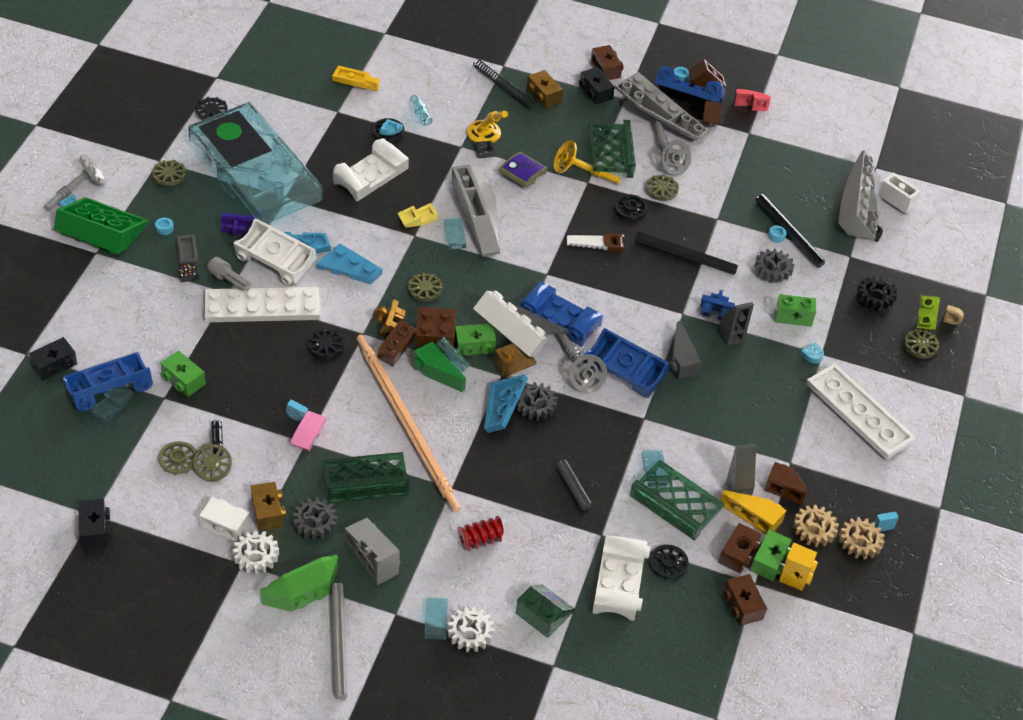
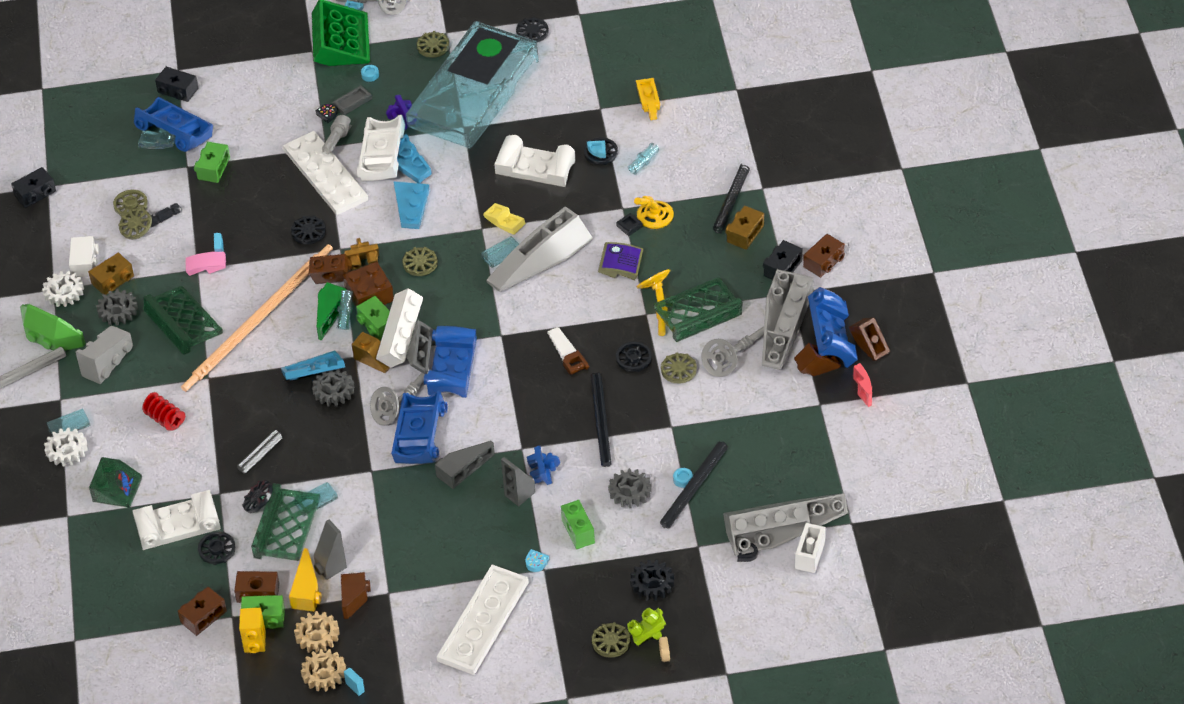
camera: 70 degrees right, 0 degrees up
(634, 504) = (257, 496): none -> black wheel
(682, 73) = (860, 314): medium azure tile -> none

